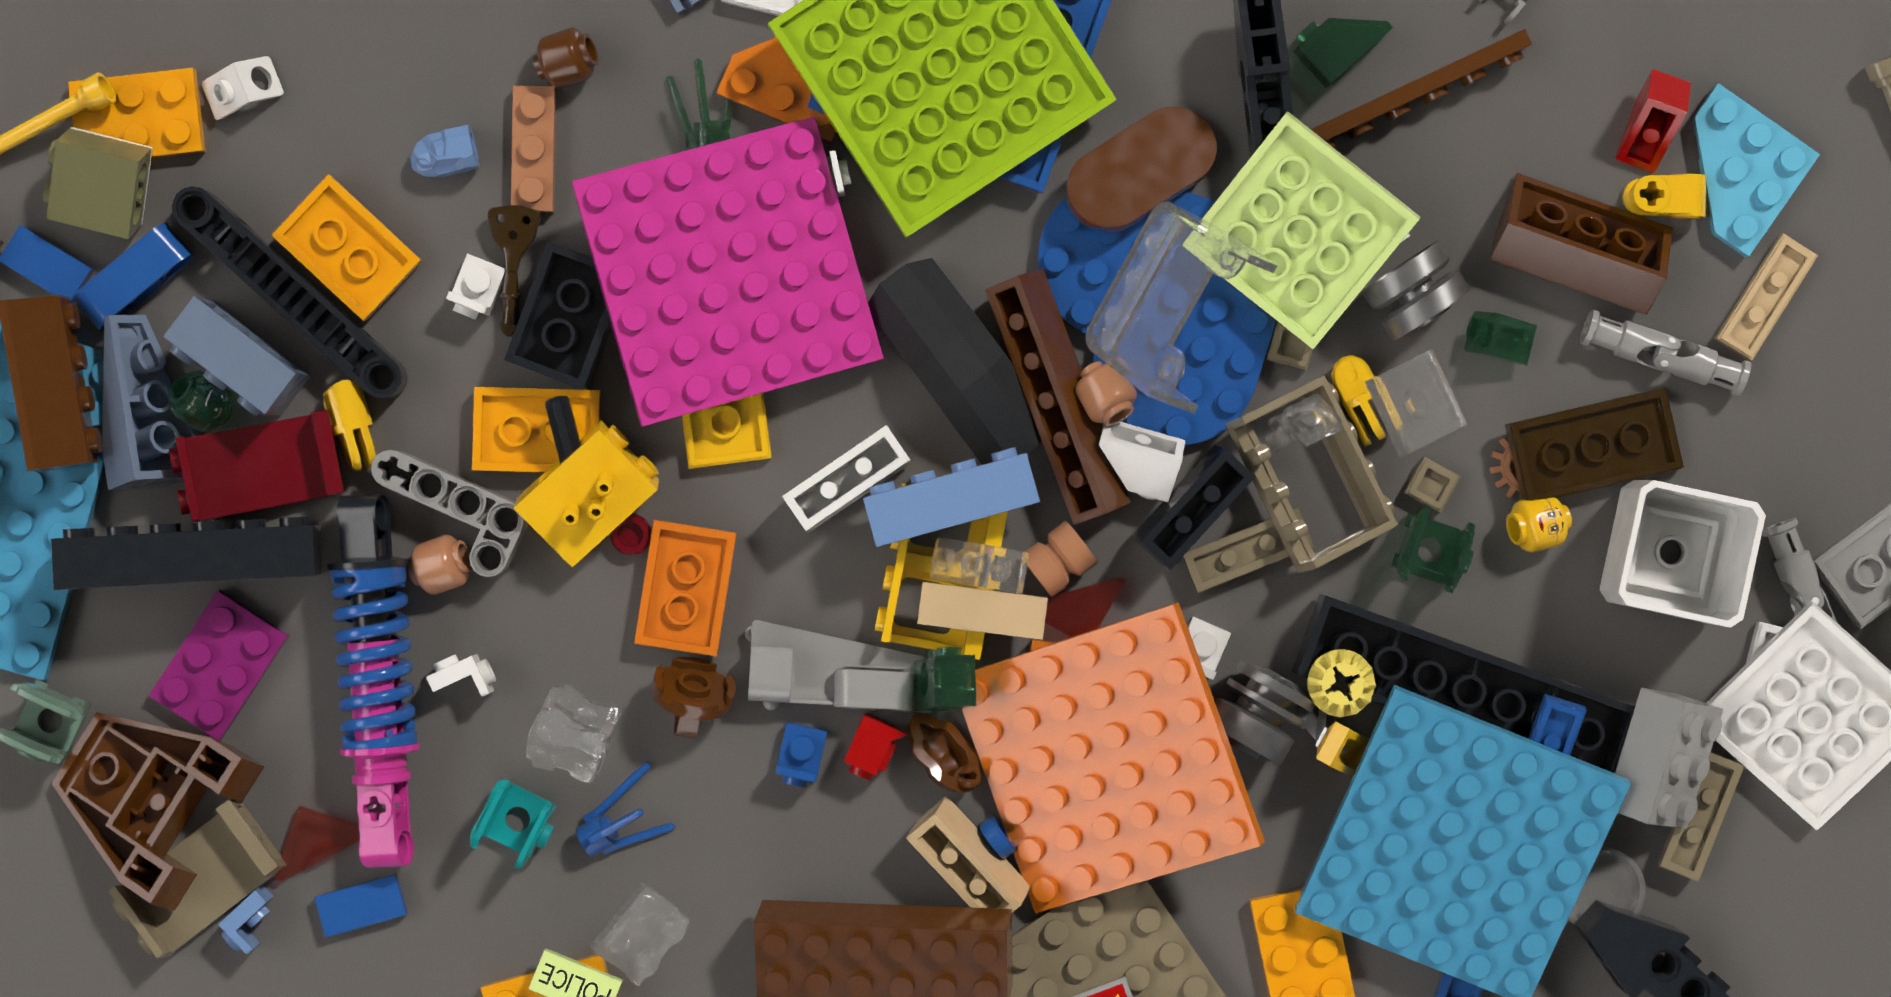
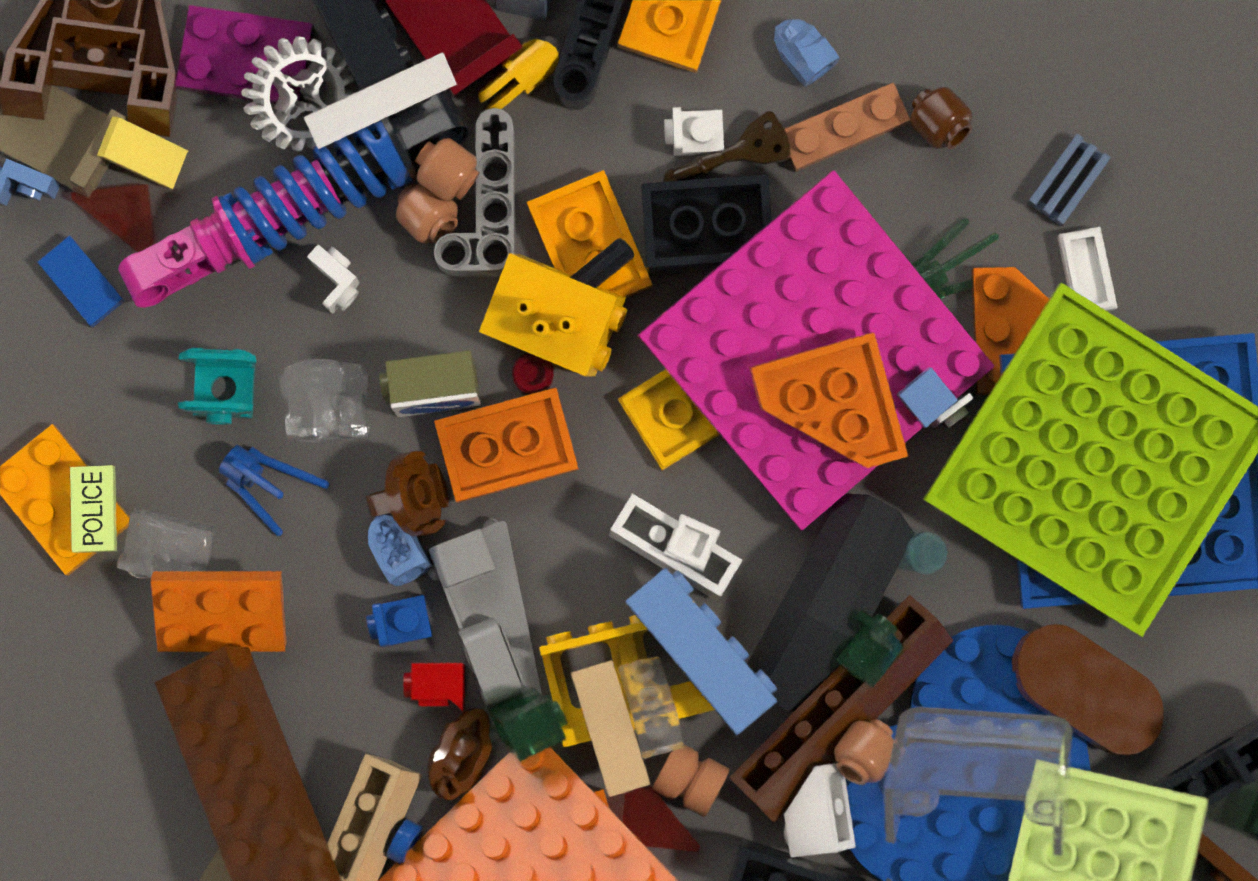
camera: 65 degrees right, 5 degrees down
(268, 798) = (142, 152): none -> light yellow tile
(272, 619) = (287, 104): none -> white gear
(320, 562) = (380, 100): none -> white sticker
(410, 530) = (446, 169): none -> nougat head
(600, 631) = (431, 384): none -> olive piece
(718, 912) = (218, 610): none -> orange plate
(738, 730) = (397, 552): none -> medium blue rock
(779, 275) = (835, 398): none -> orange plate
(815, 191) = (927, 397): none -> medium blue tile
(850, 463) = (691, 542): none -> white tile
(953, 255) = (926, 553): none -> clear light blue plate
(1018, 347) = (871, 649): none -> clear green bracket

